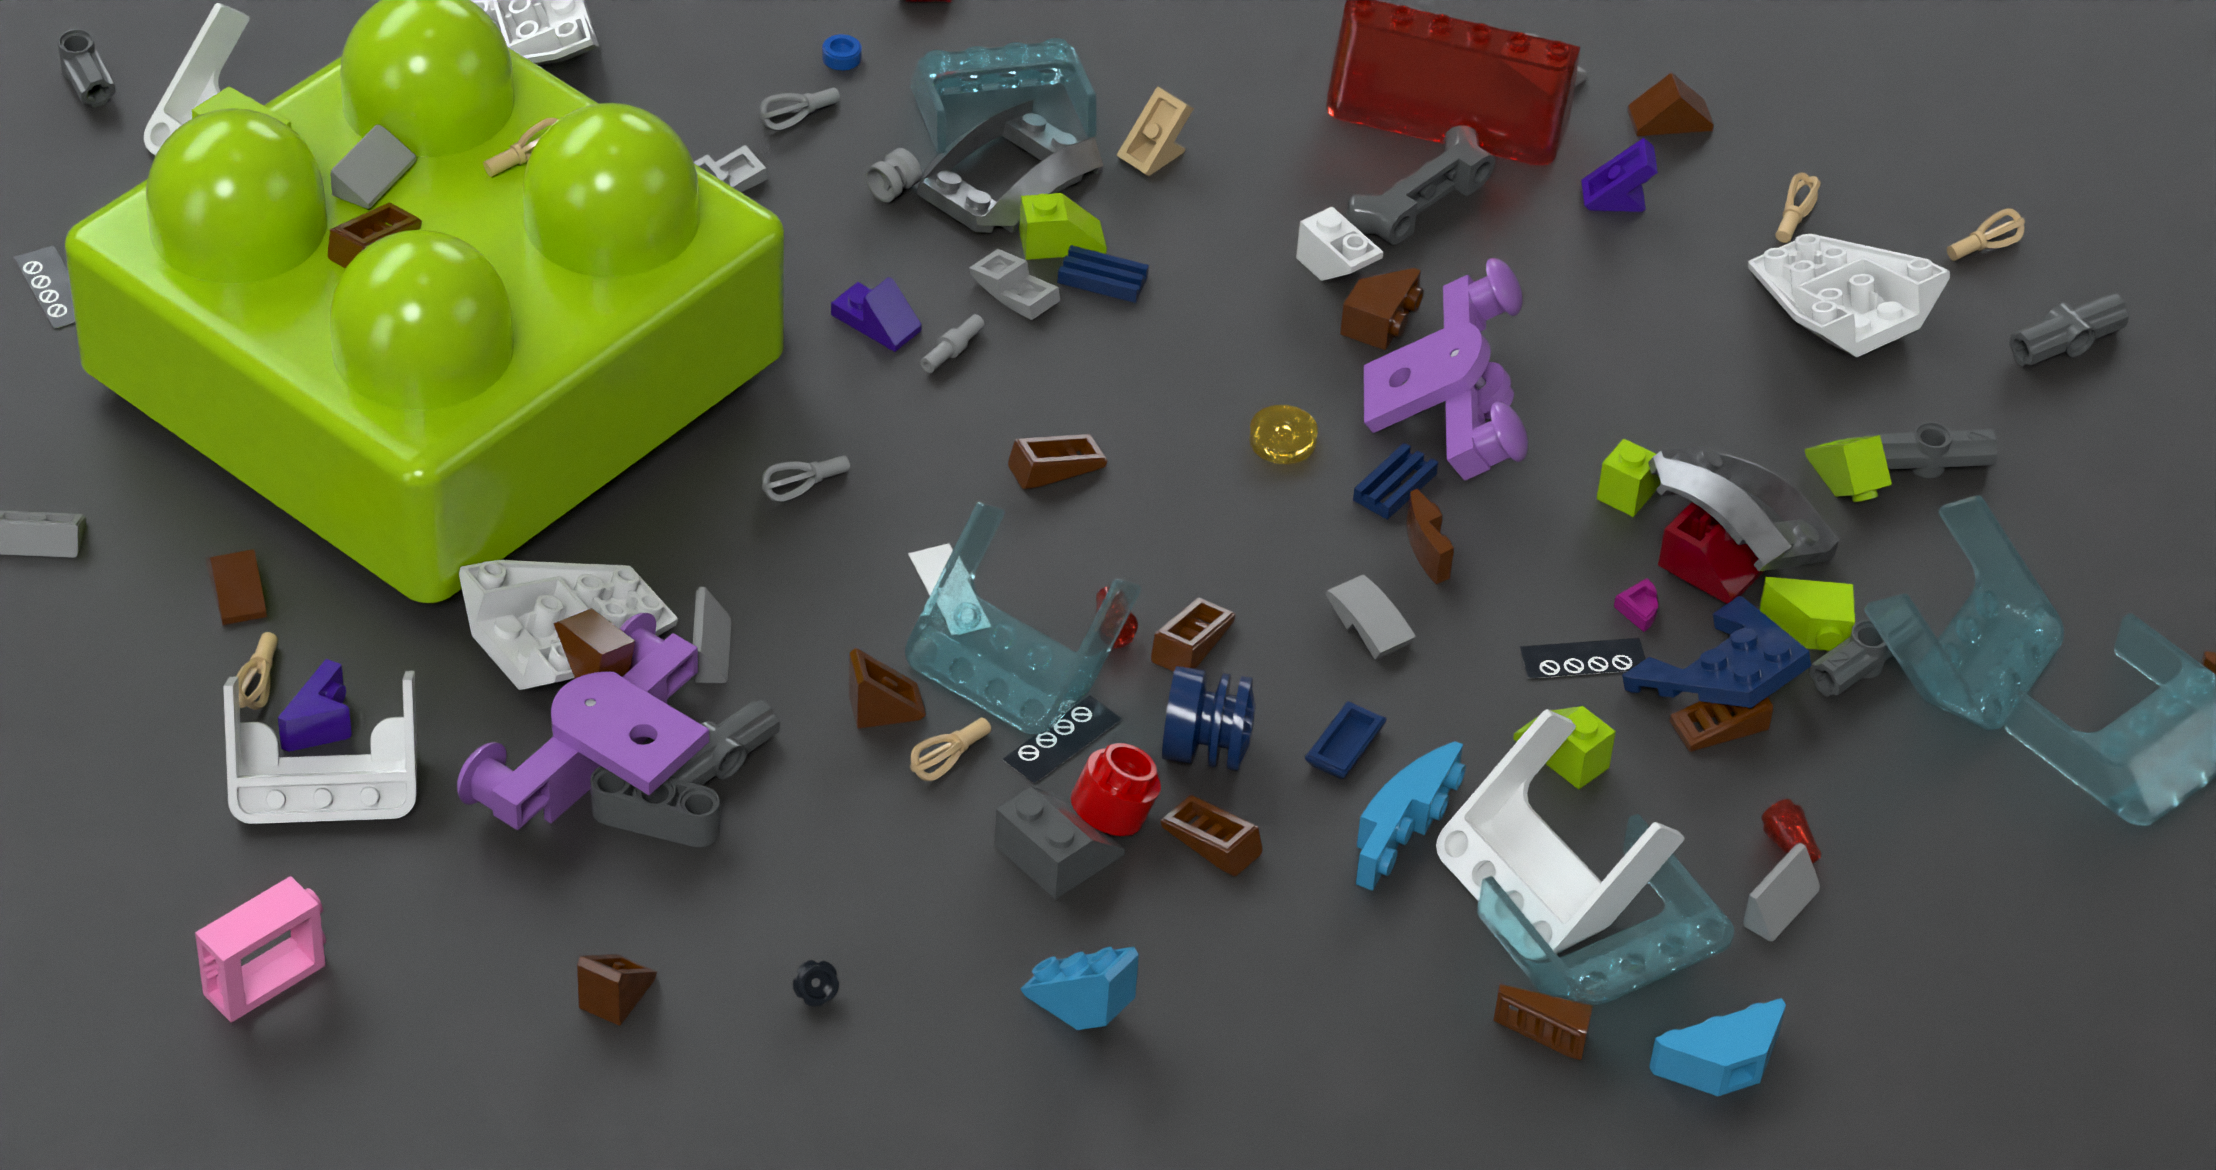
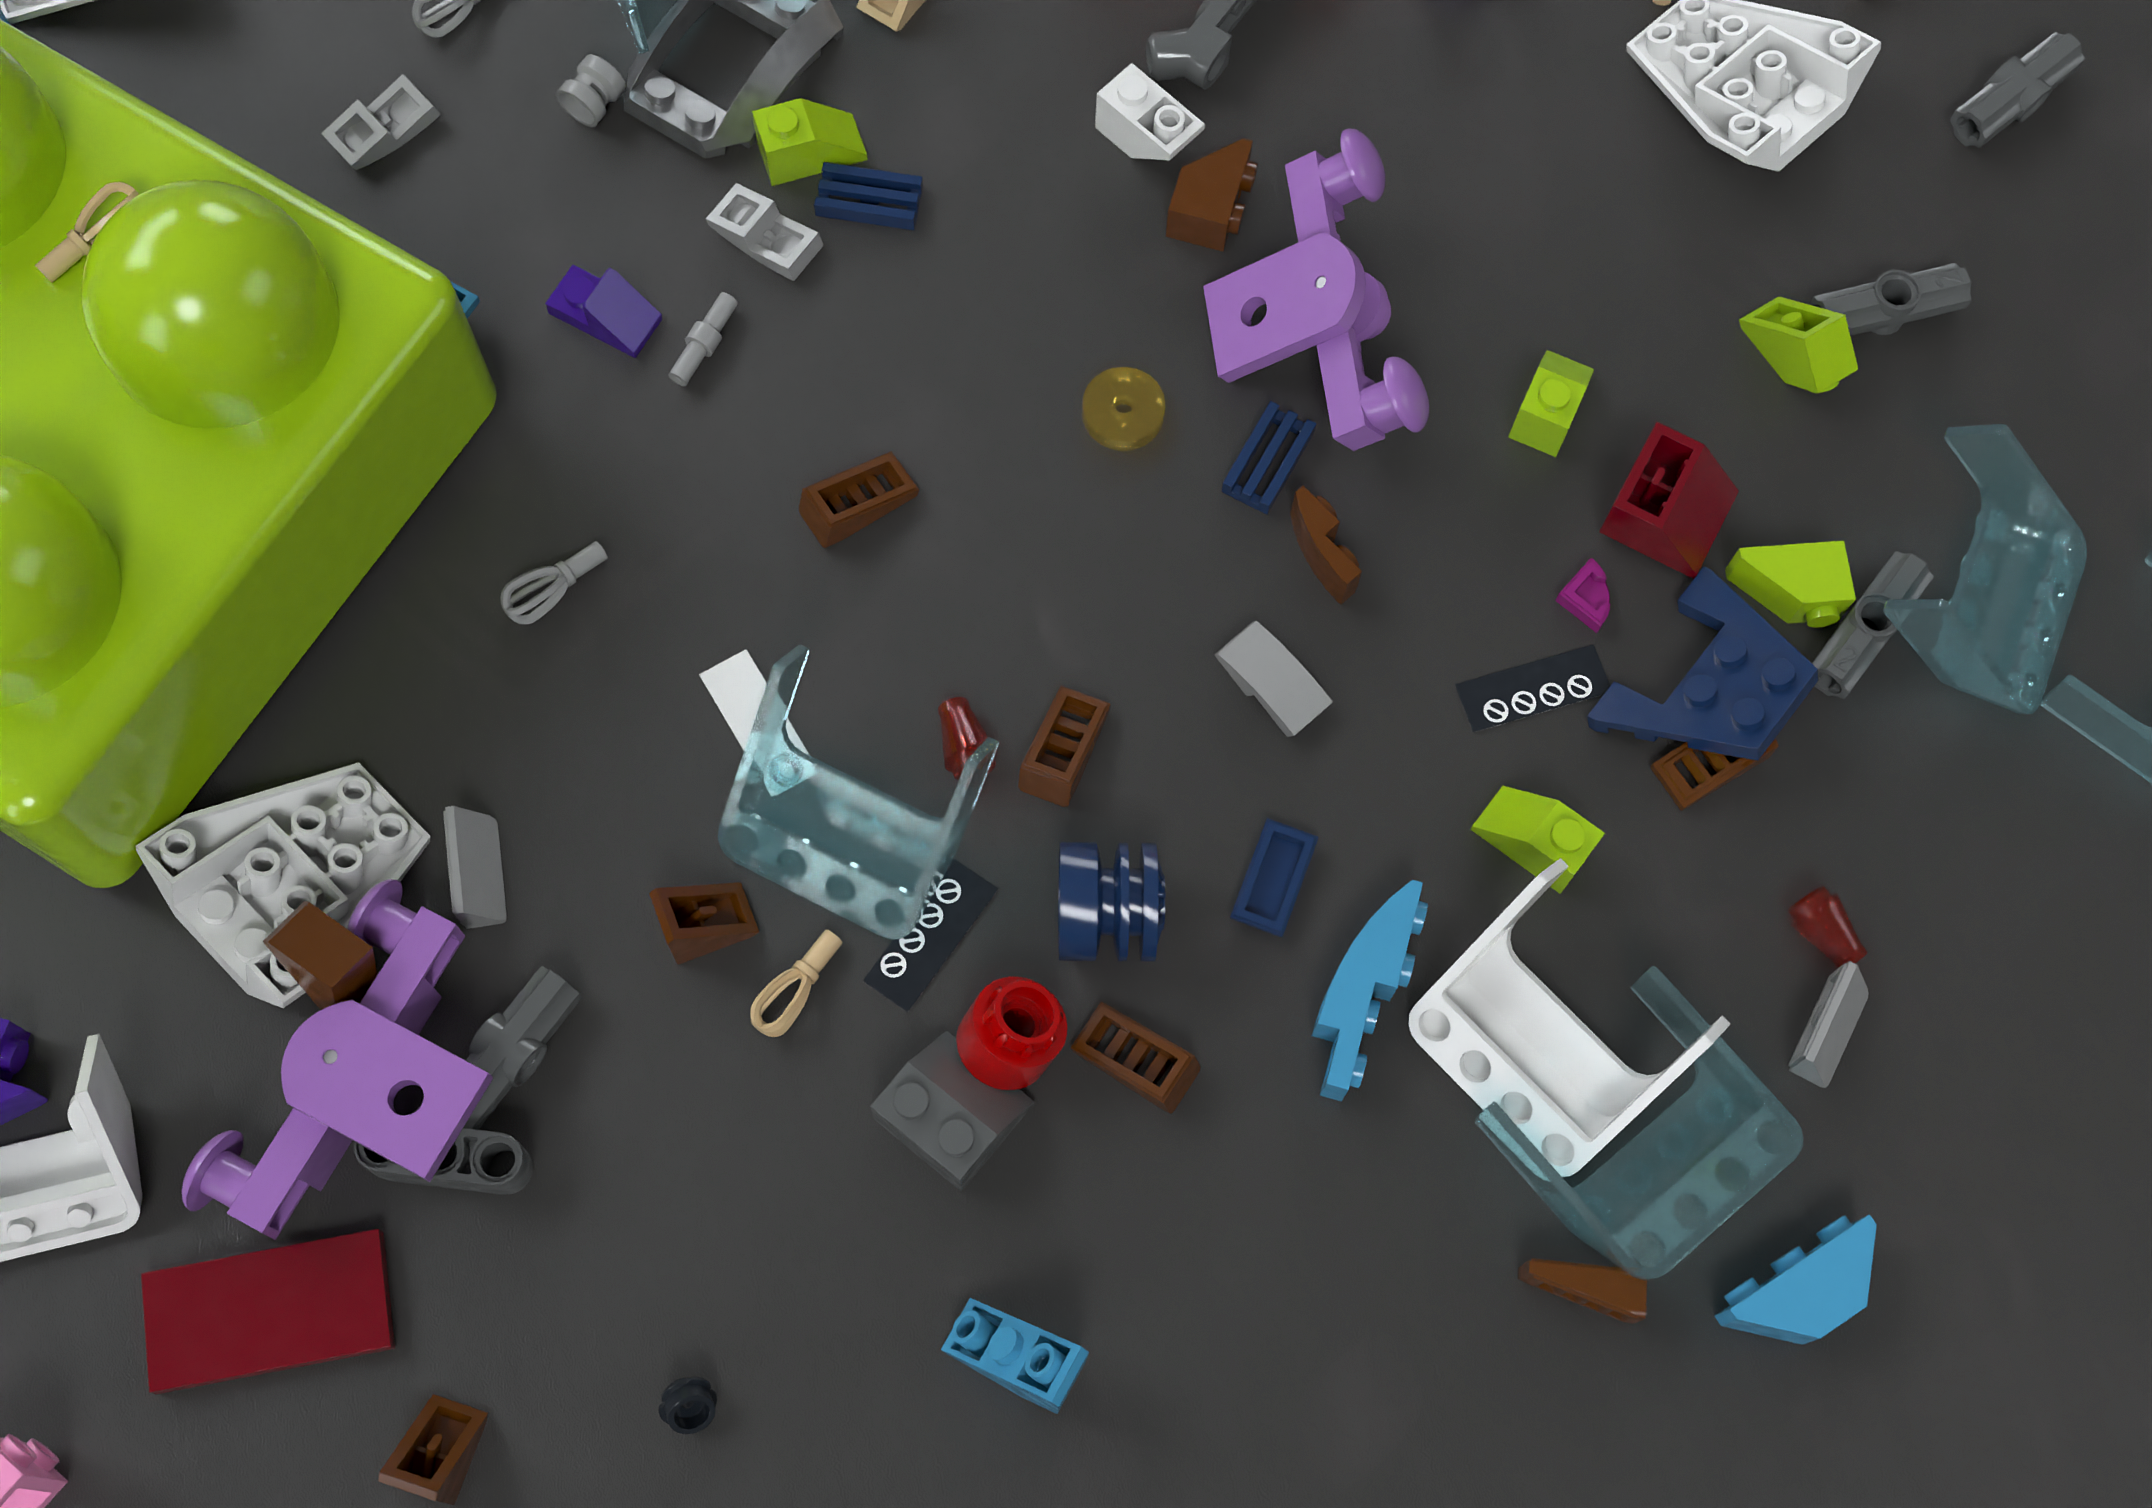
camera: 10 degrees left, 25 degrees up
(499, 883) = (266, 1311): none -> dark red tile
(1716, 485) = (1739, 498): flat silver wedge -> none

